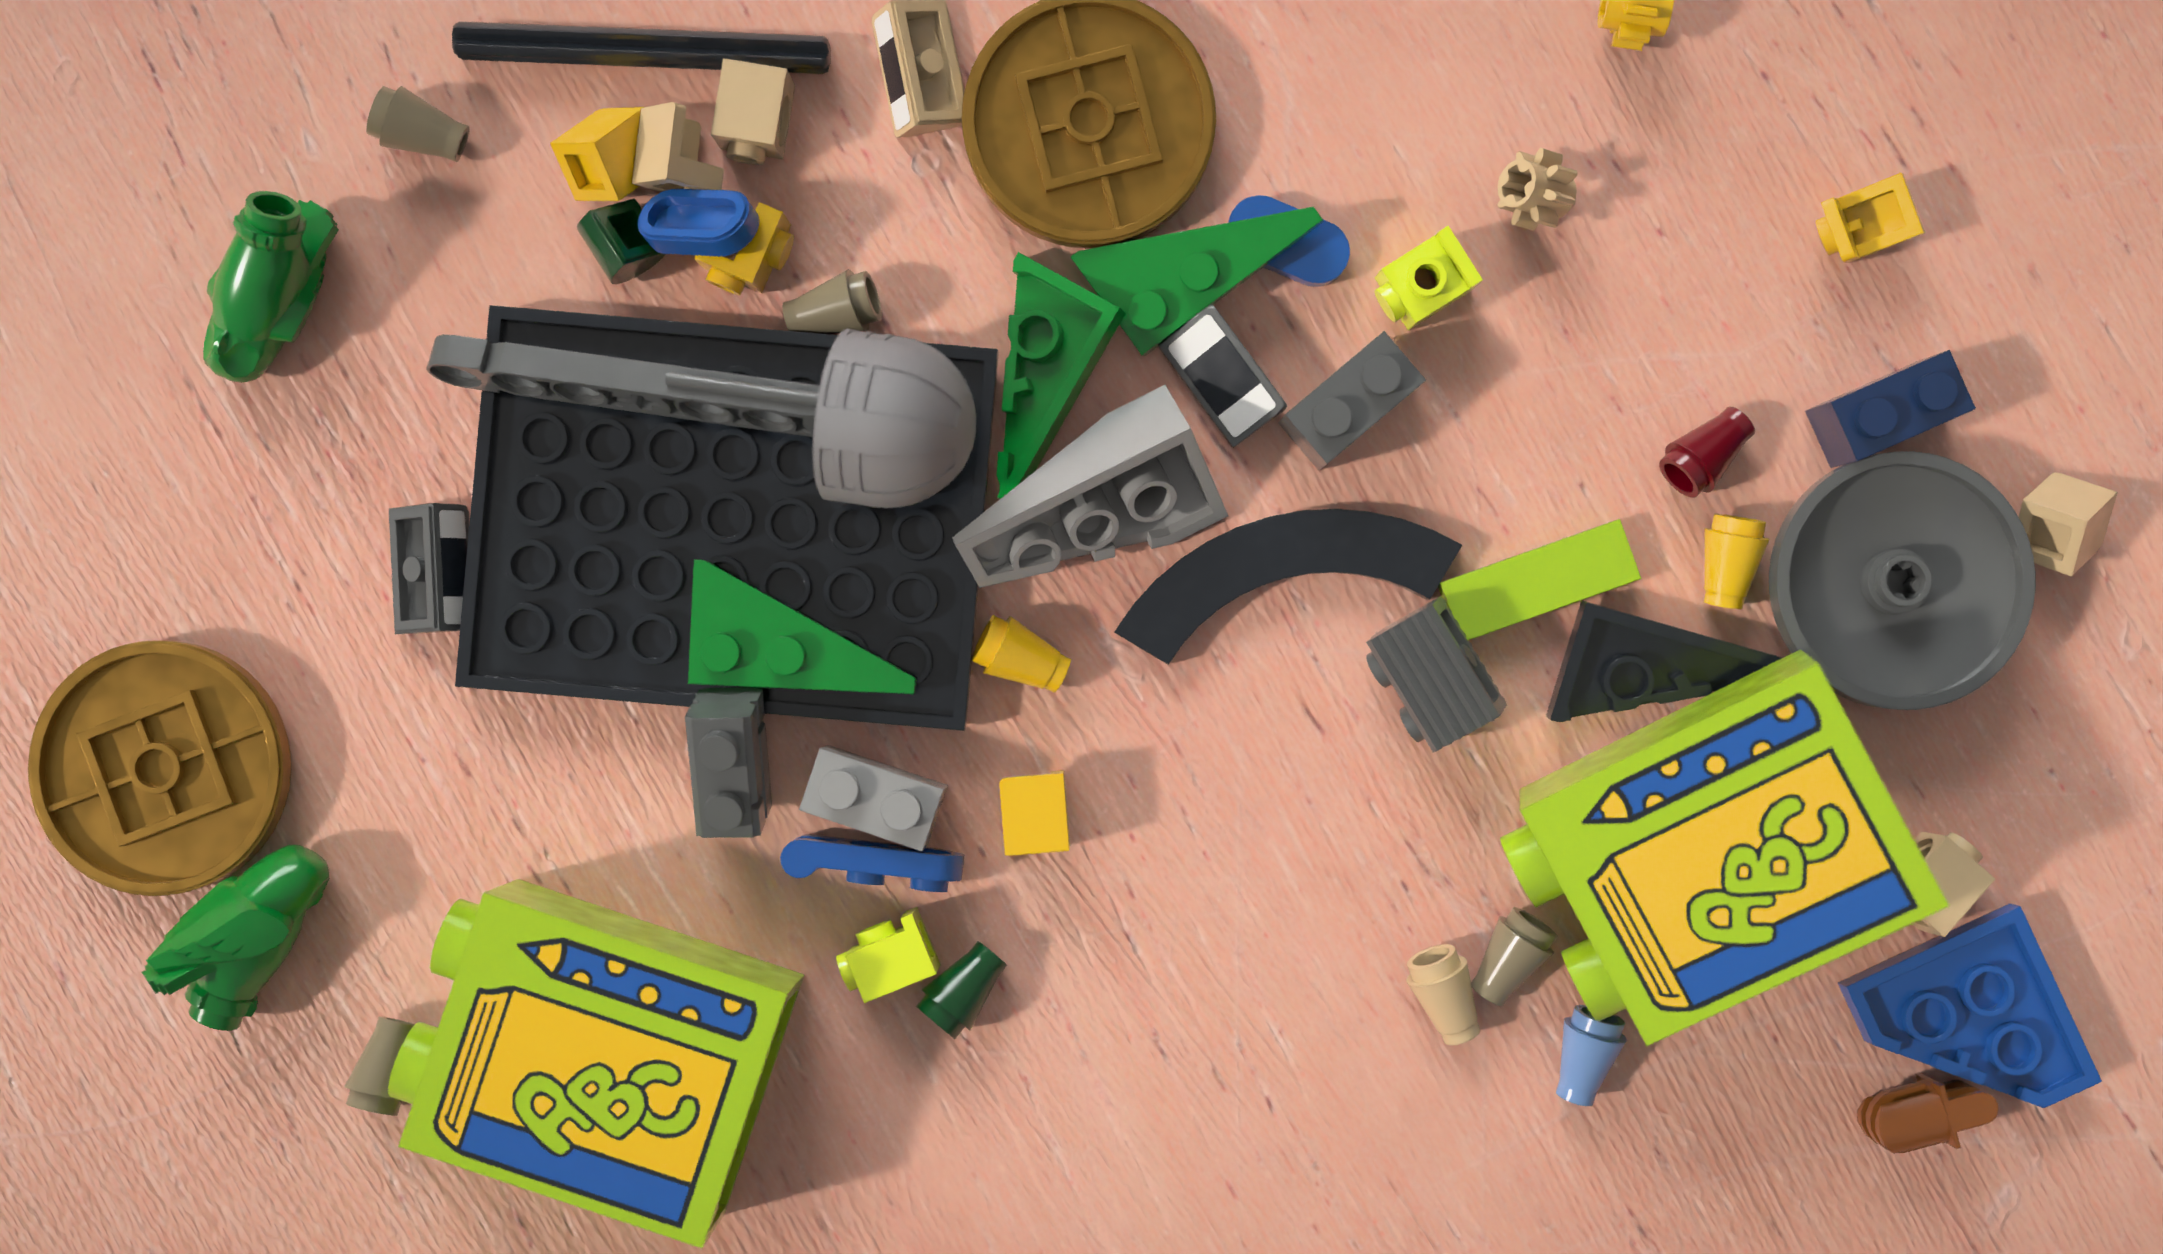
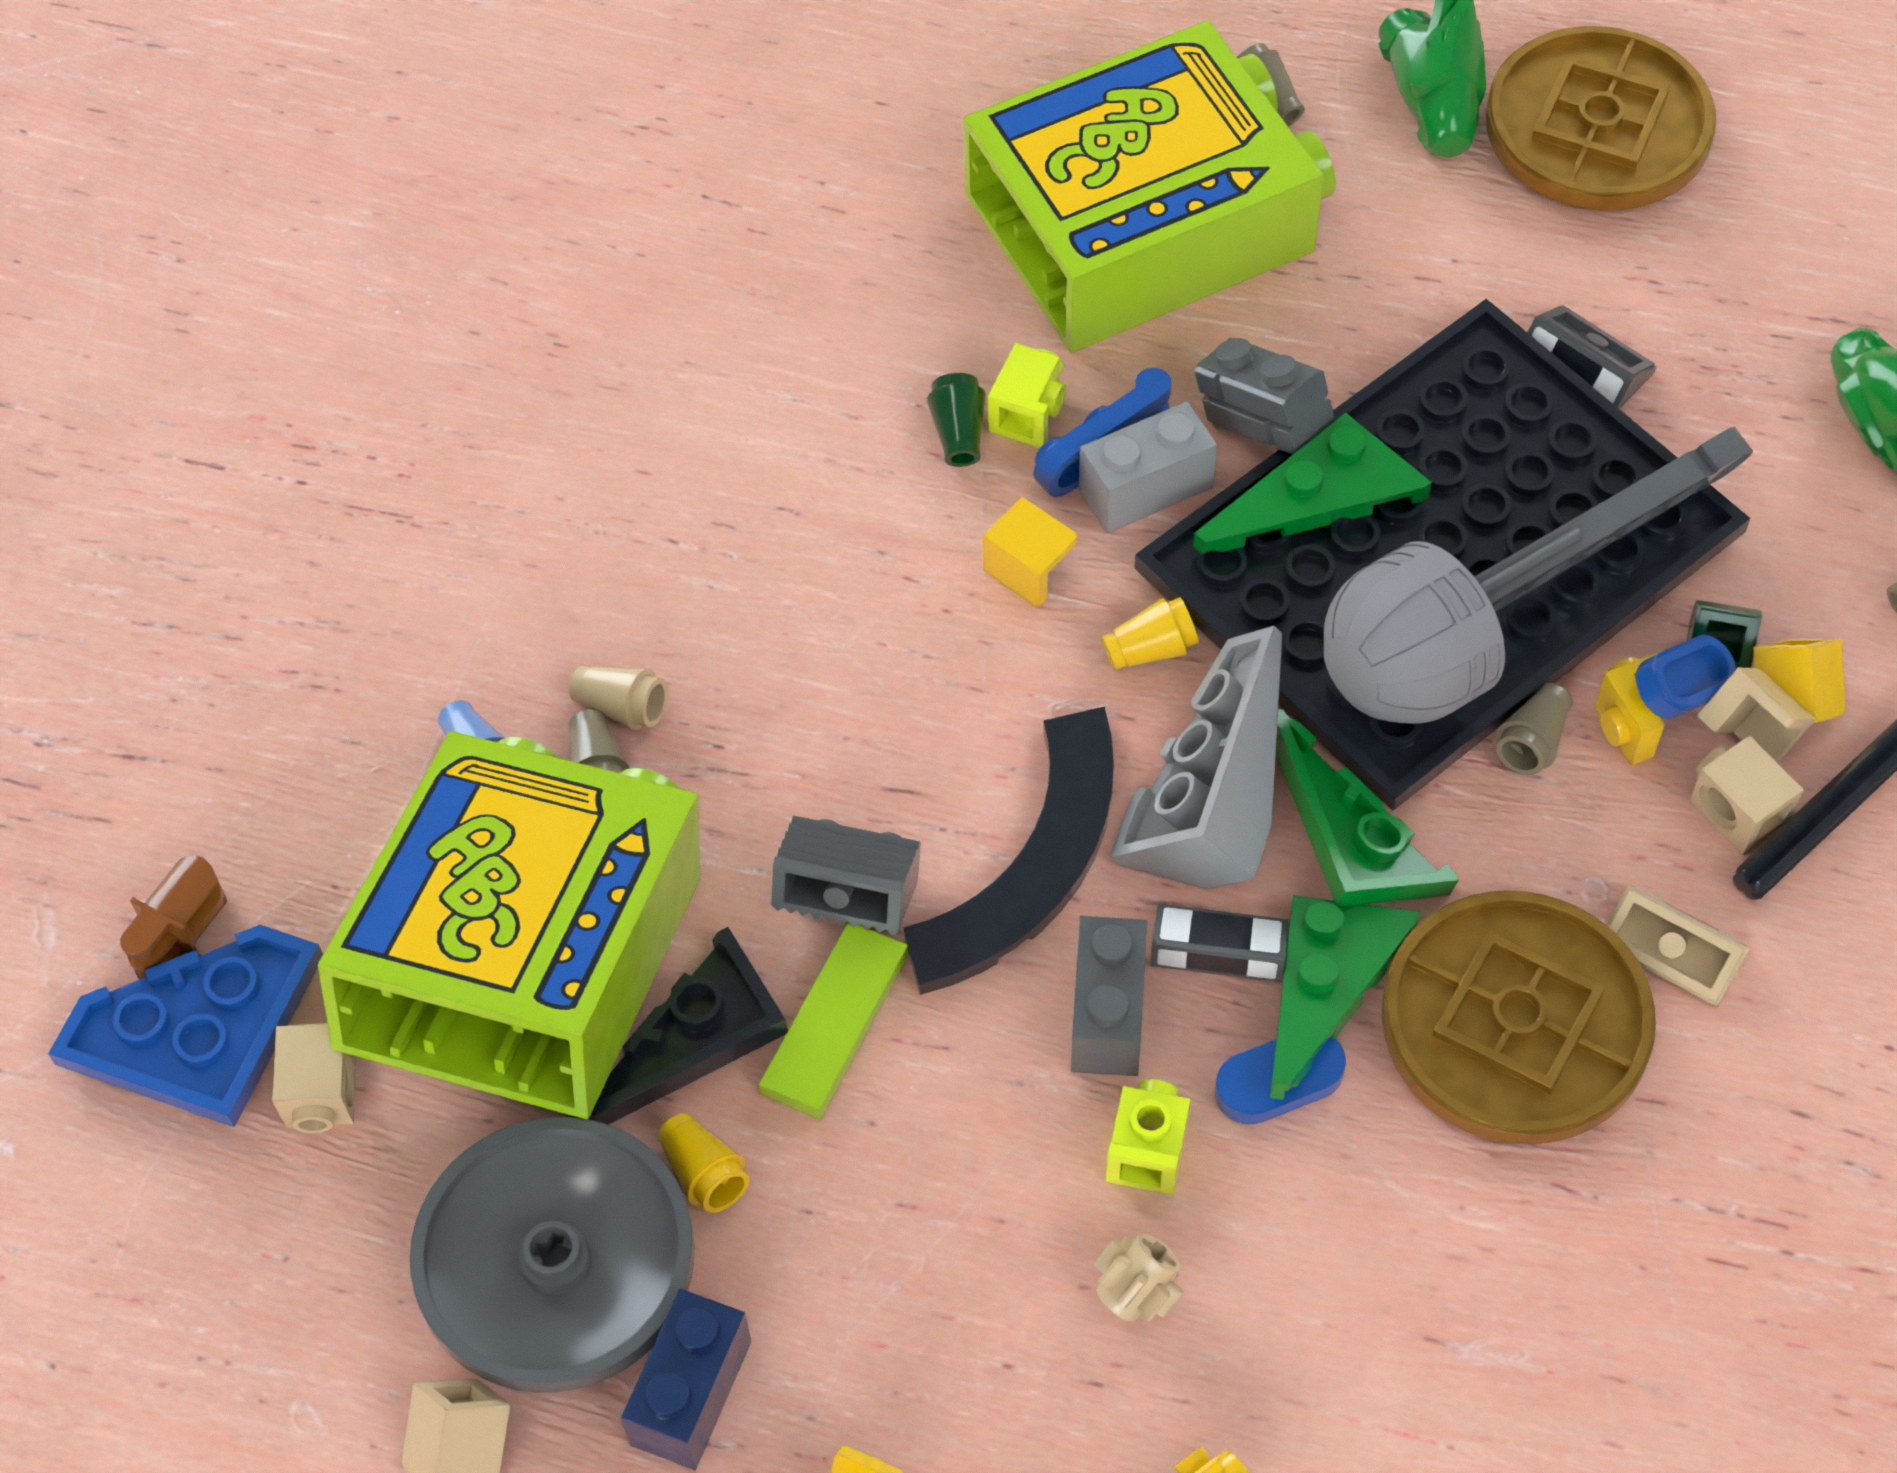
camera: 130 degrees right, 30 degrees down
(1704, 454) = (801, 1218): dark red cone -> none

